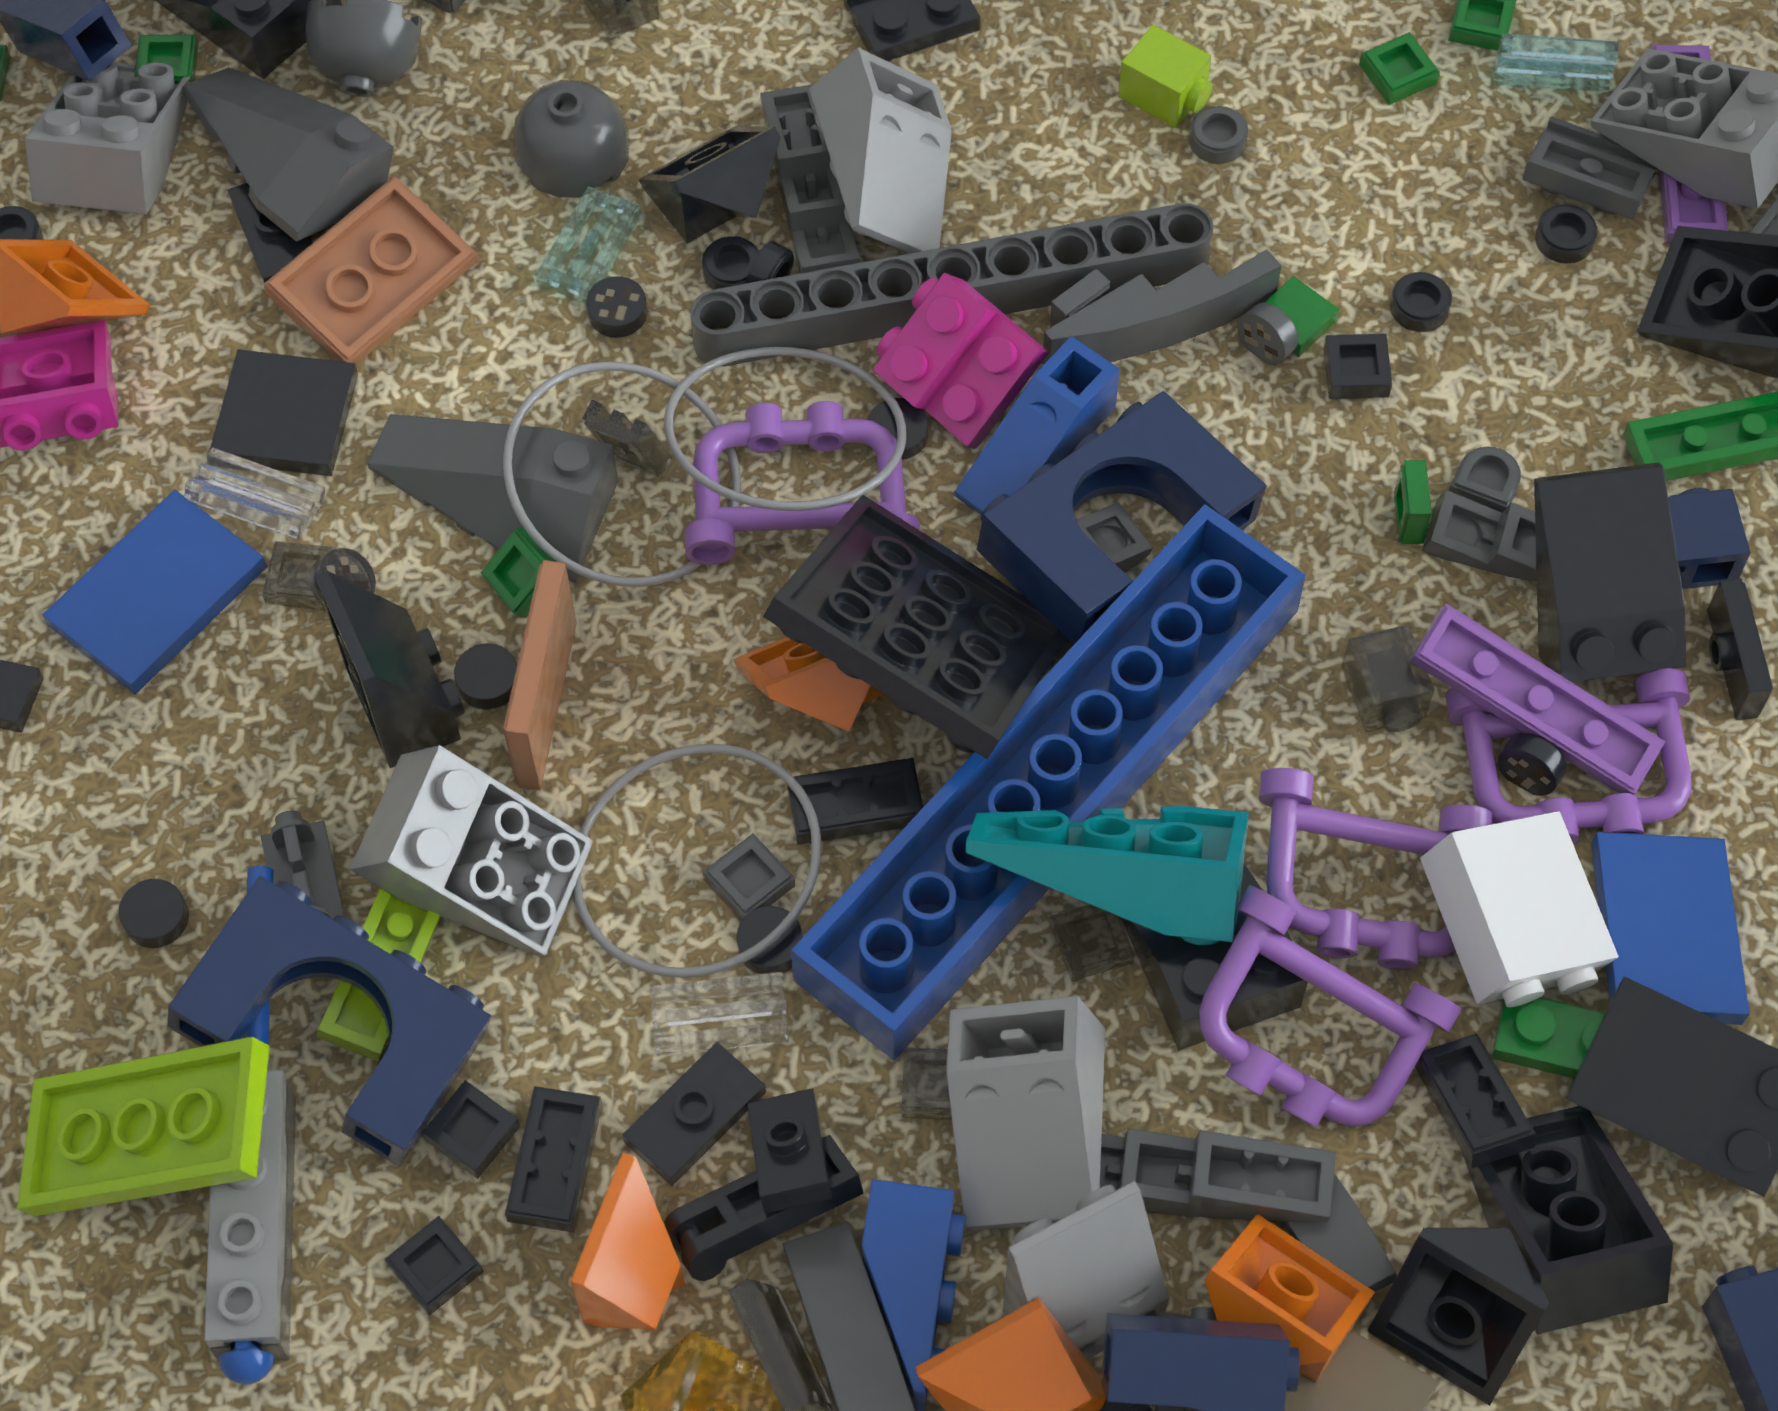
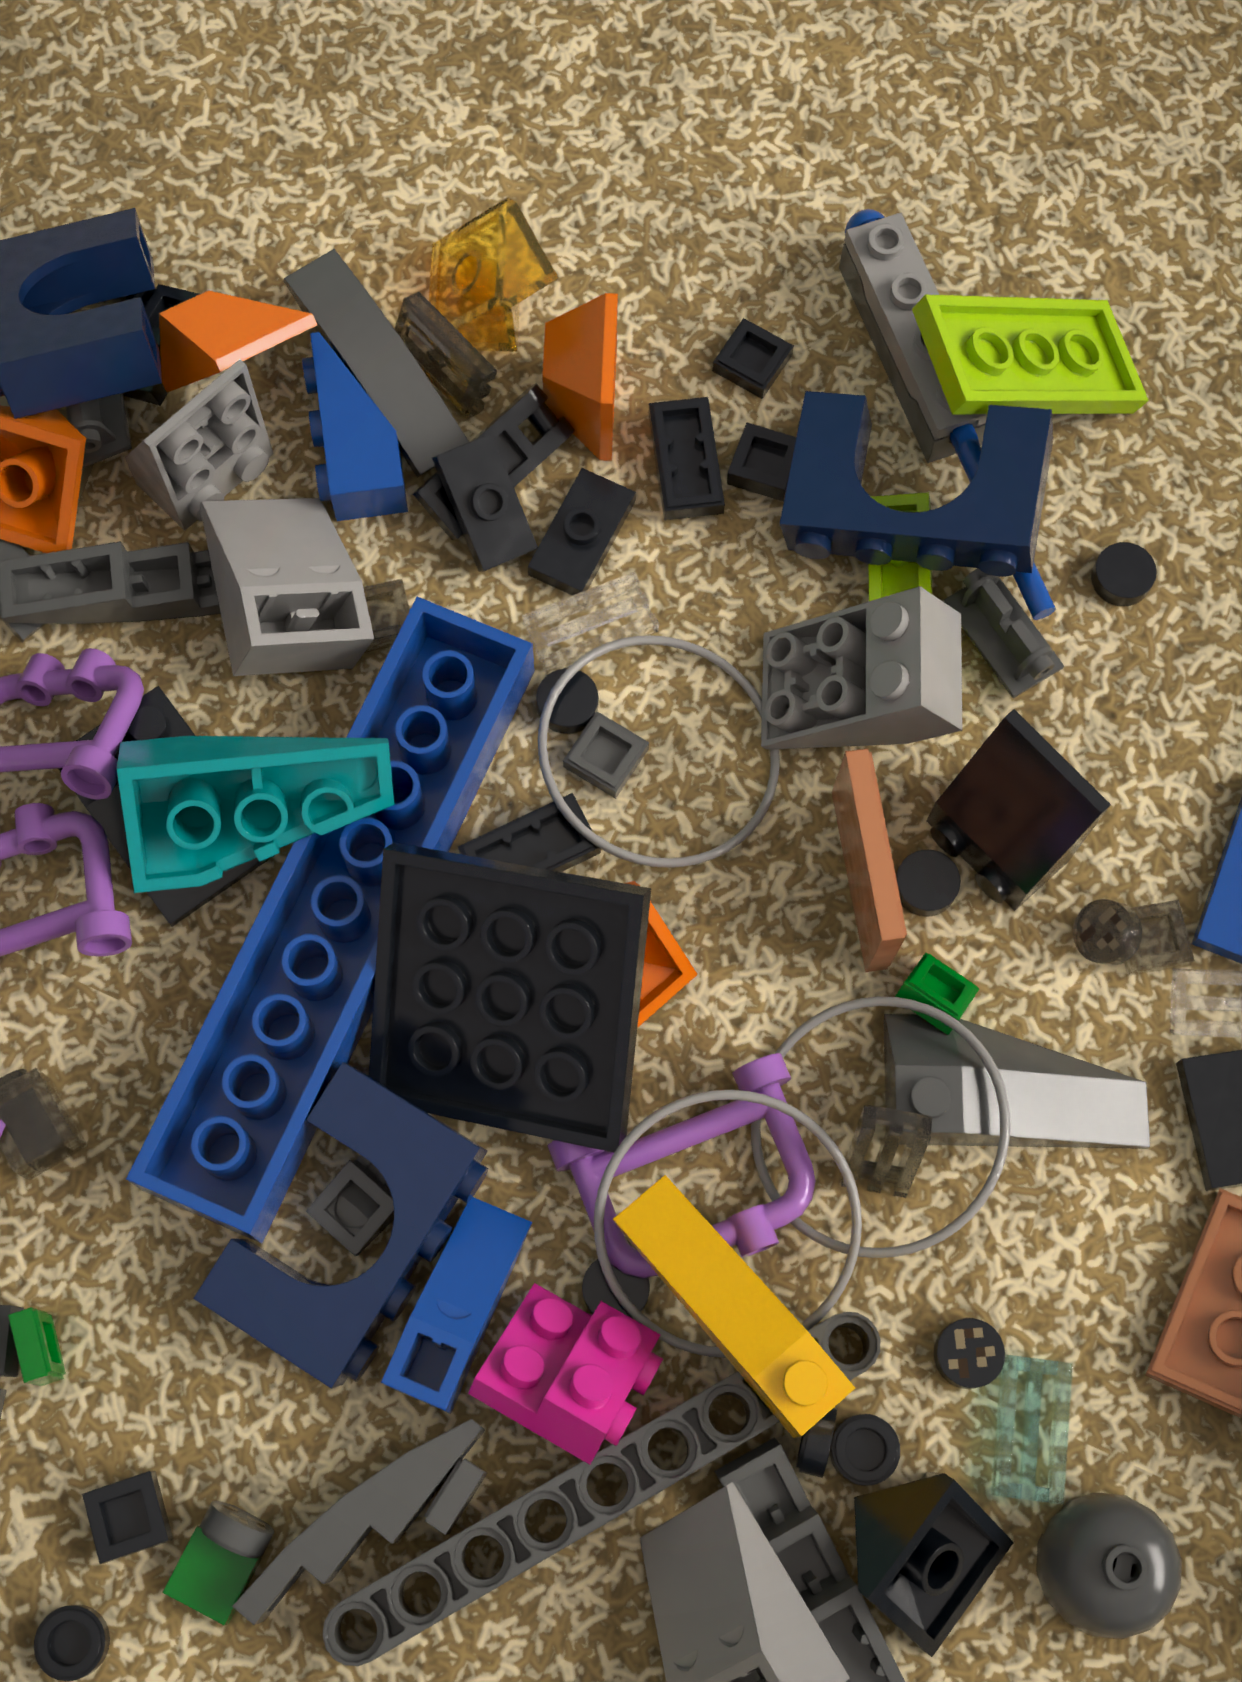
camera: 160 degrees right, 10 degrees up
(805, 341) = (734, 1308): none -> yellow slope

